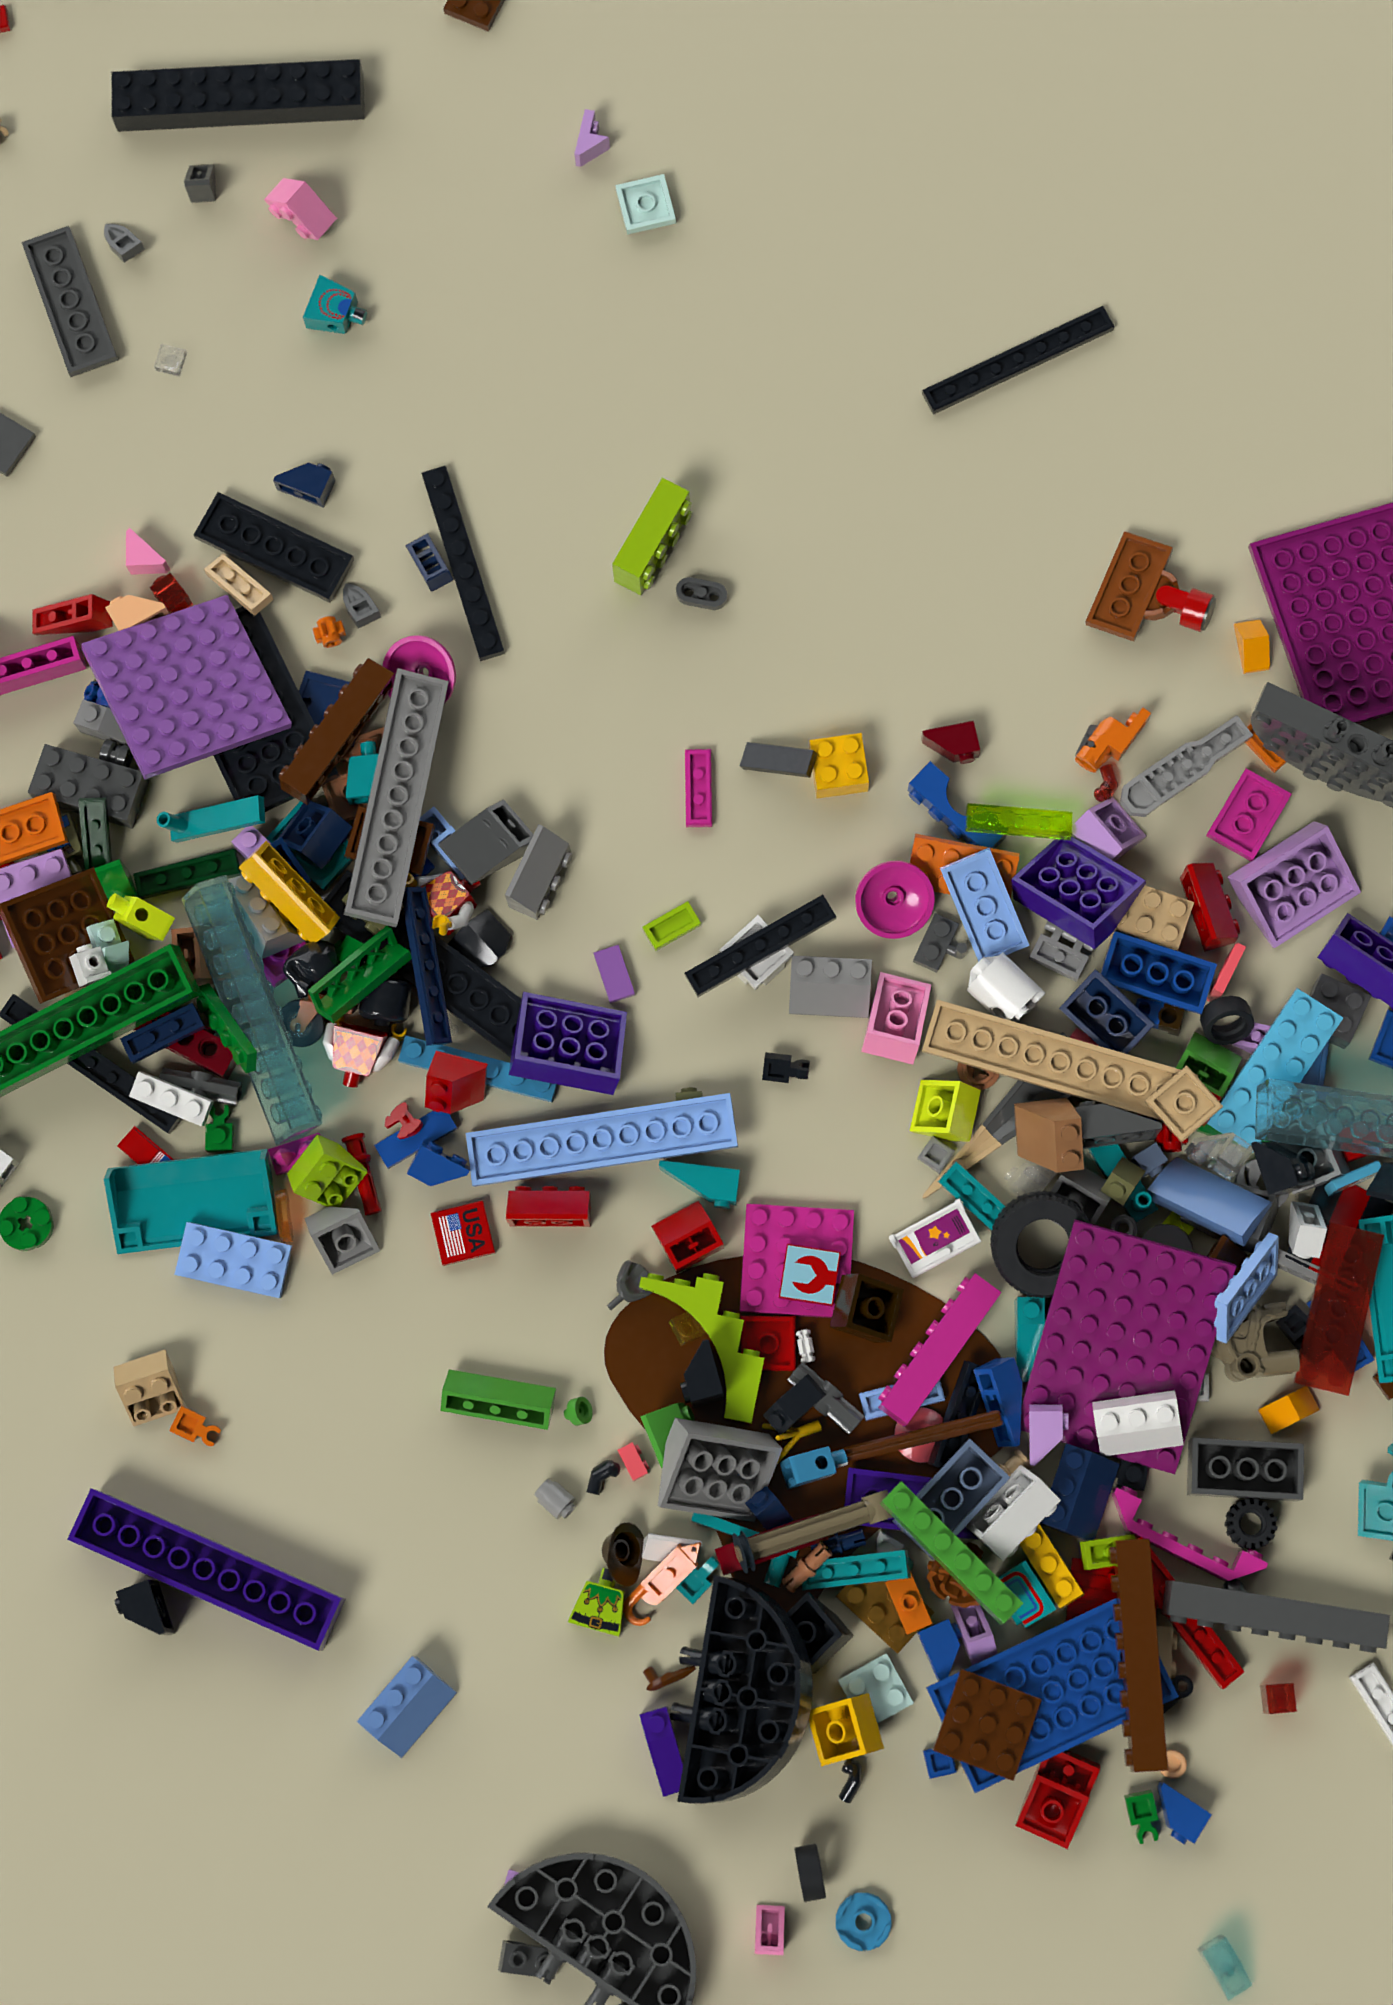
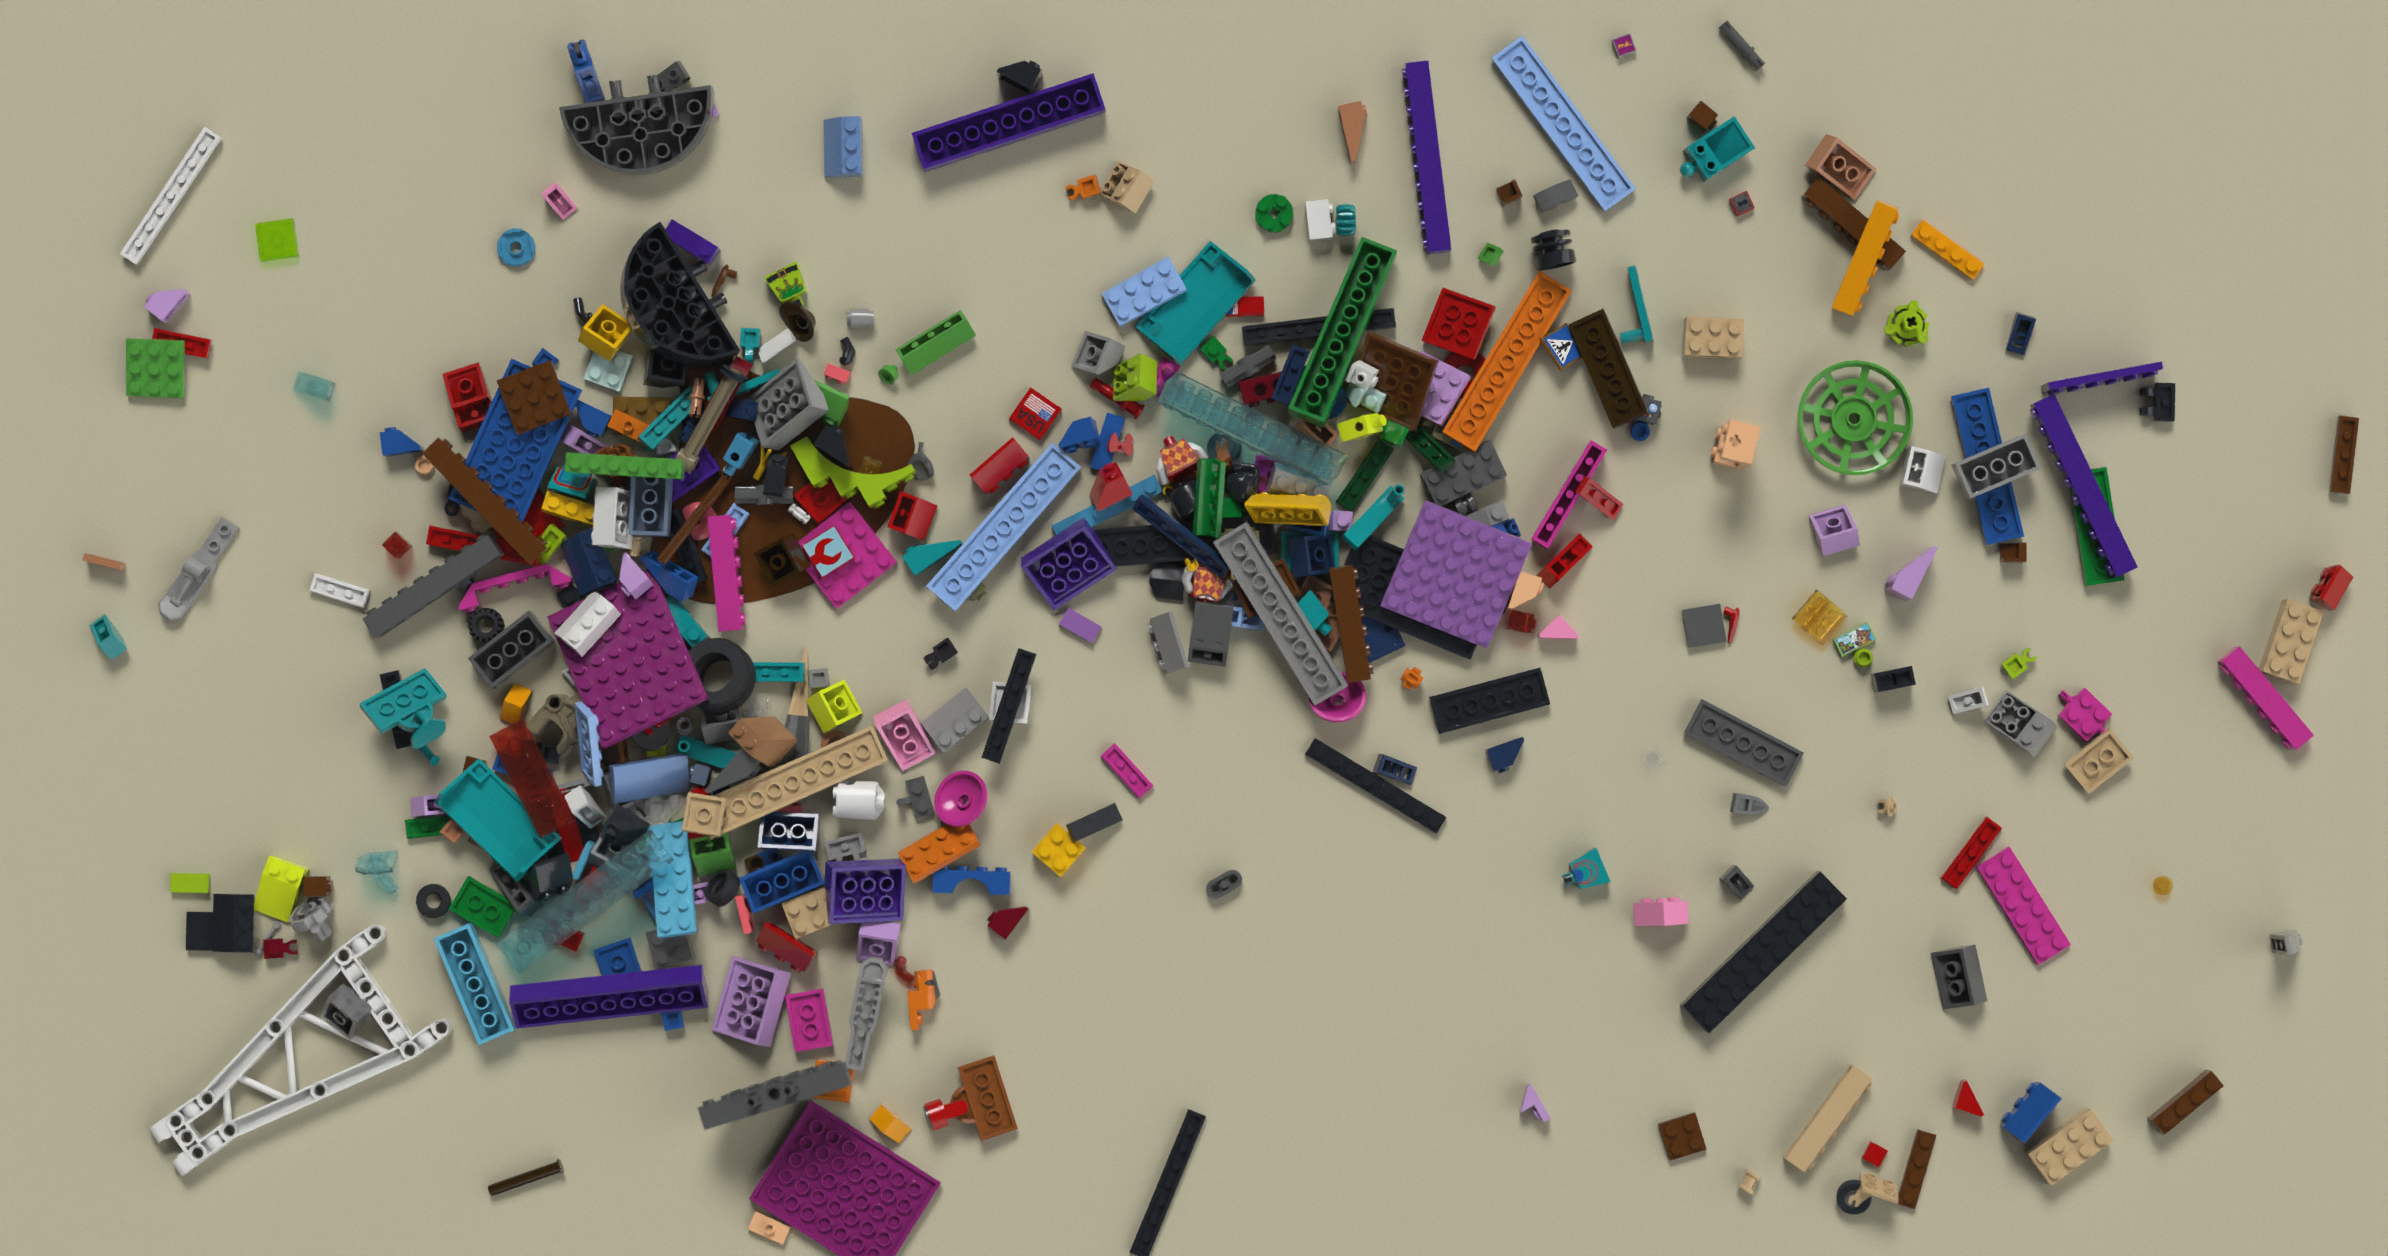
camera: 135 degrees right, 10 degrees up
(171, 1098) = (1255, 345): white plate -> none
(227, 1028) = (1253, 406): green plate -> none
(238, 584) = (1487, 660): tan plate -> none
(284, 1216) = (1137, 337): clear orange tile -> none
(359, 605) = (1410, 709): dark grey plate -> none
(645, 204) = (1465, 1092): light aqua plate -> none
(652, 536) = (1278, 889): lime brick -> none
(663, 1580) = (766, 326): plate -> none
(671, 926) = (1072, 679): lime tile -> none
(810, 1872) = (562, 246): black tyre -> none
(926, 1242) = (782, 627): door -> none
(984, 905) = (908, 836): light blue plate -> none
(1018, 821) = (930, 901): clear neon green plate -> none
(1122, 1180) = (704, 748): olive brick -> none
(1142, 1811) = (419, 426): green plate -> none

